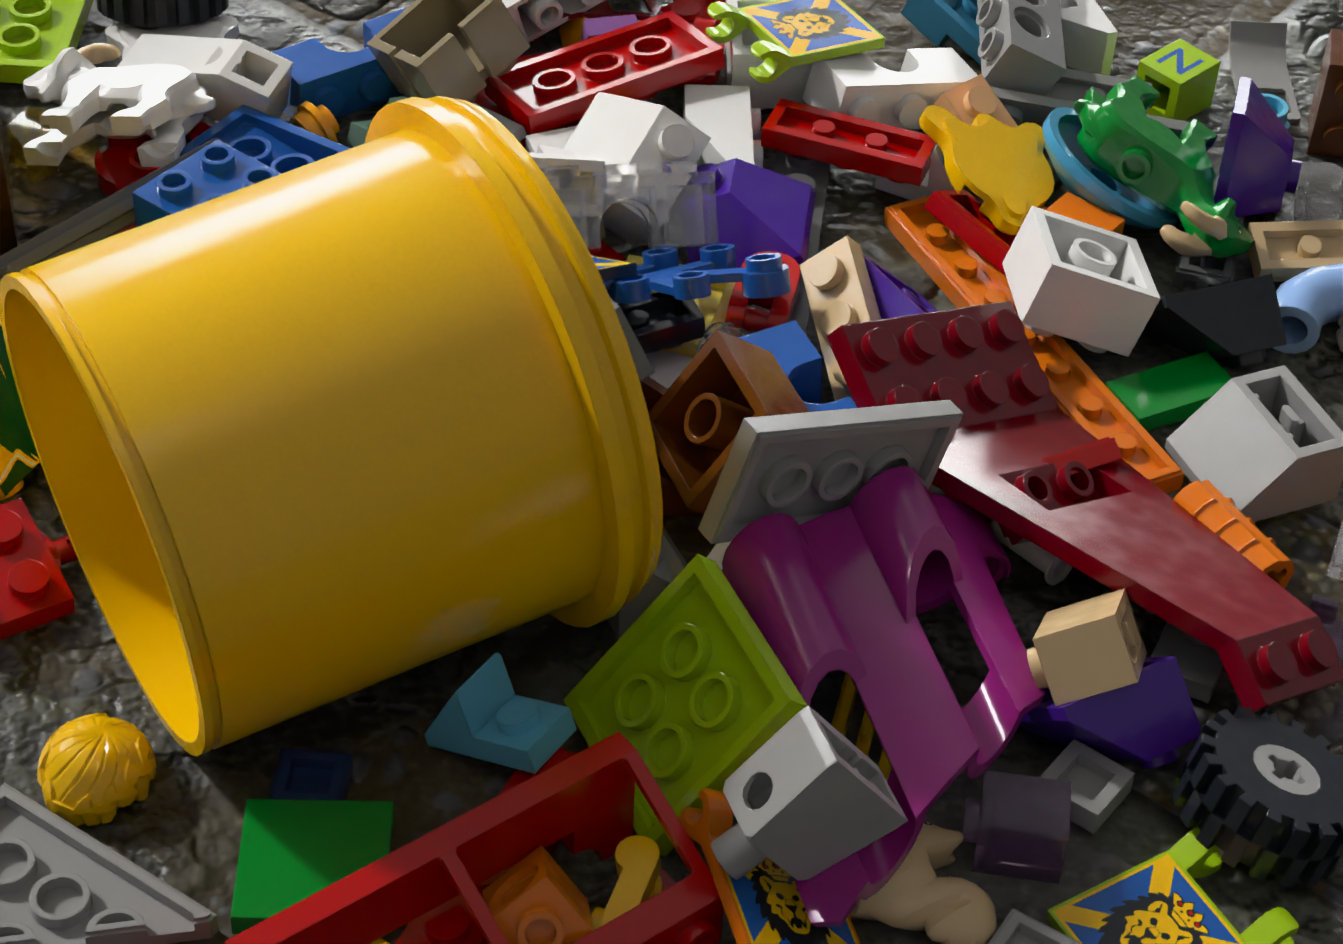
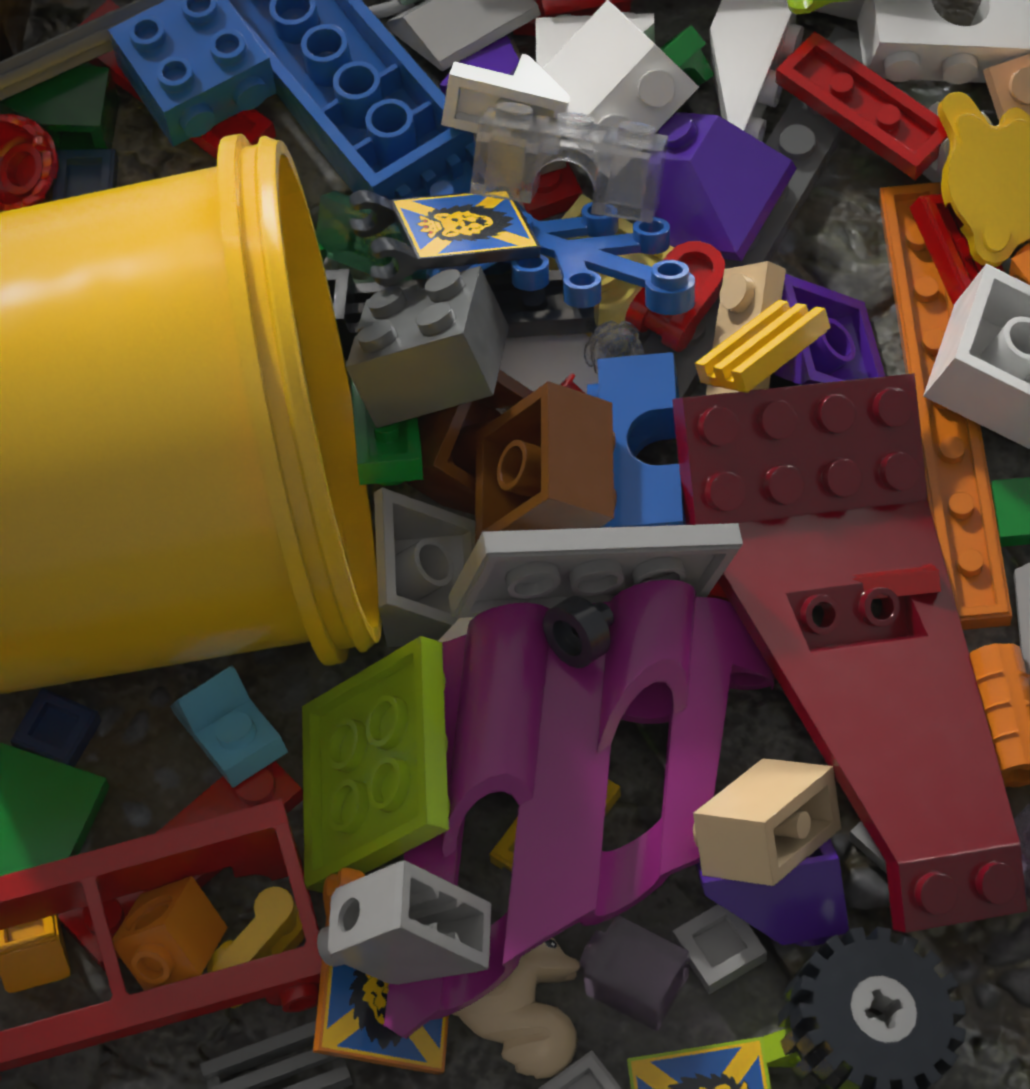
camera: 30 degrees right, 20 degrees up
(844, 519) = (578, 630): none -> black tile
(885, 284) = (762, 346): none -> yellow tile

